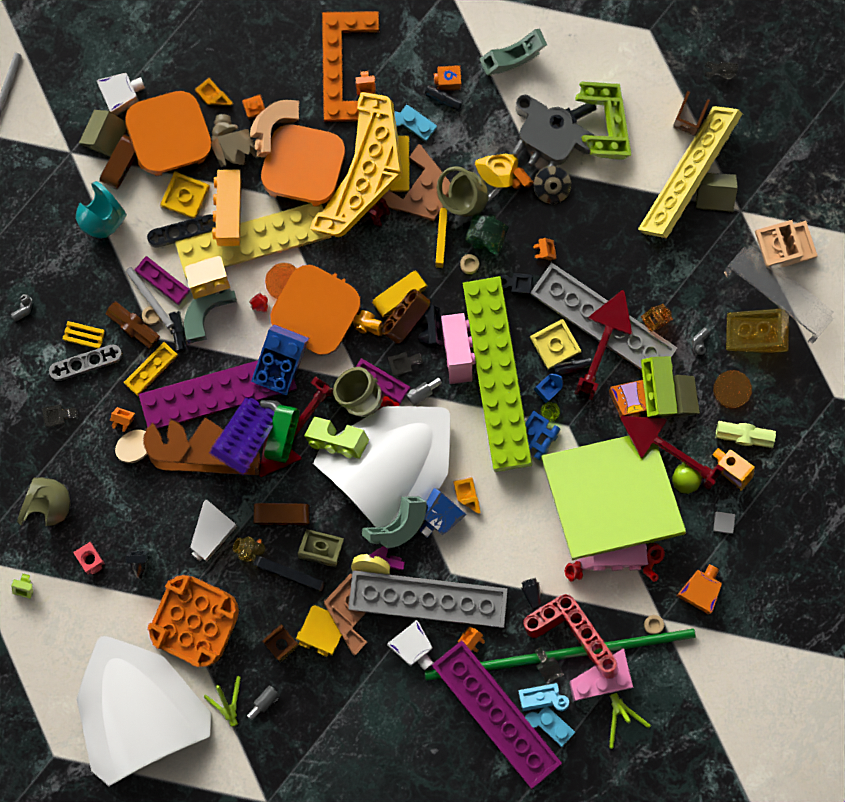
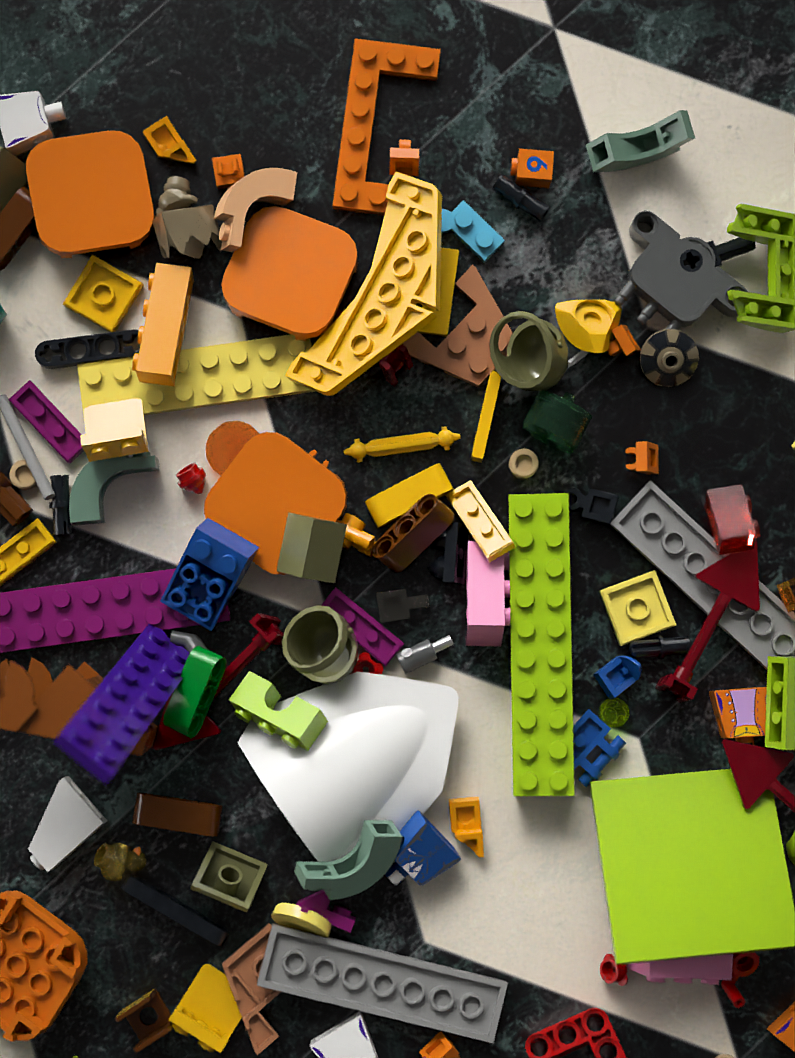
camera: 10 degrees right, 5 degrees up
(343, 333) = (311, 548): none -> olive slope
(391, 262) = (401, 444): none -> yellow wheel
(447, 302) = (480, 521): none -> yellow tile
(531, 590) = (545, 992): black cone -> none
(605, 279) = (731, 519): none -> clear red brick

